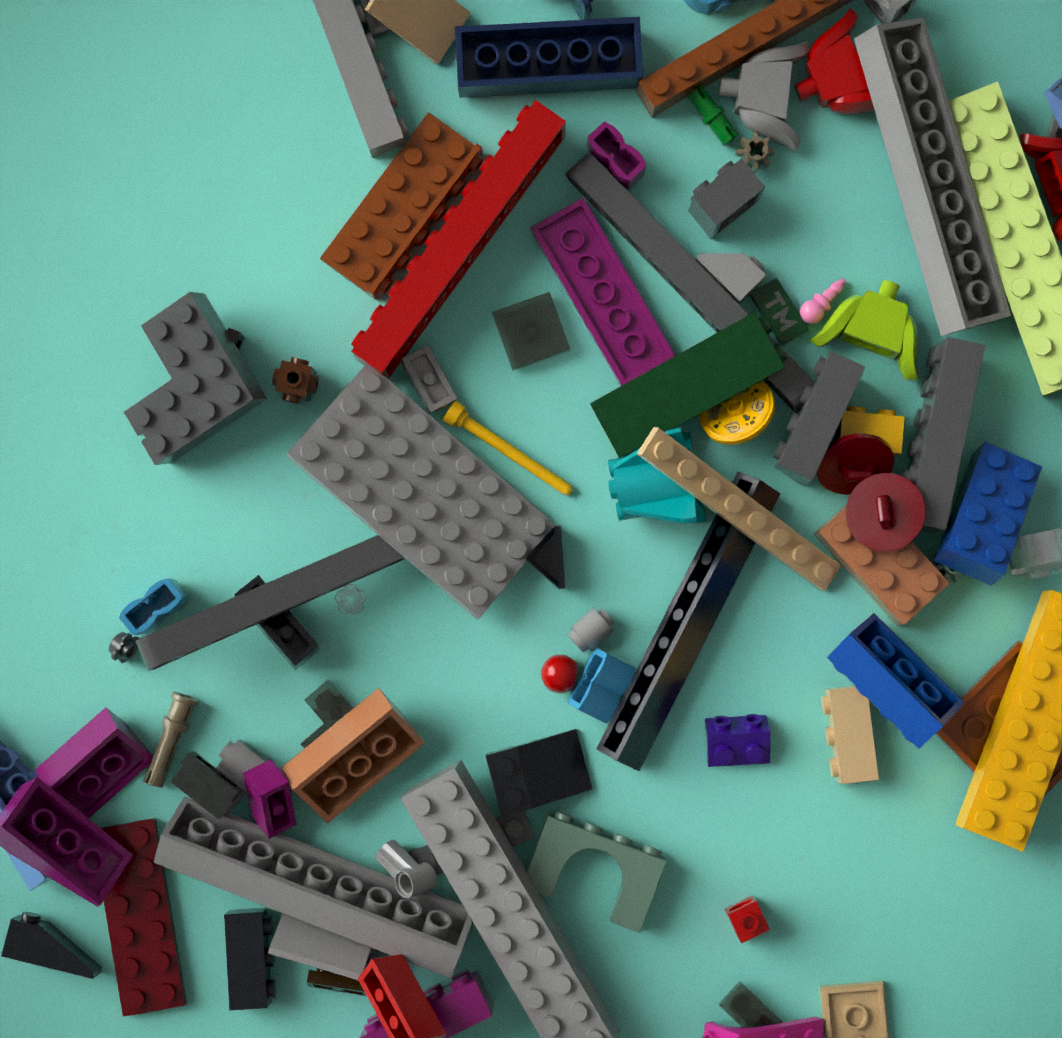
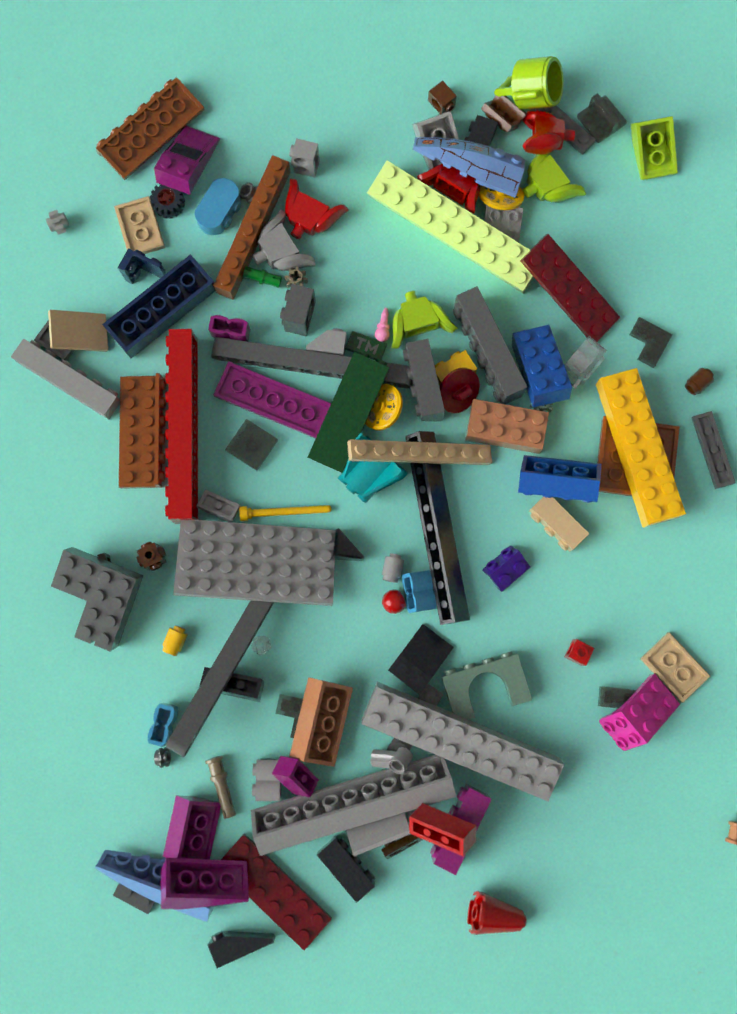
camera: 40 degrees left, 5 degrees down
(206, 785) = (257, 794): pearl dark grey panel -> none
(246, 511) = (174, 640): none -> yellow brick
(885, 512) = (492, 400): dark red shield -> none
(932, 175) = (390, 226): light grey brick -> none

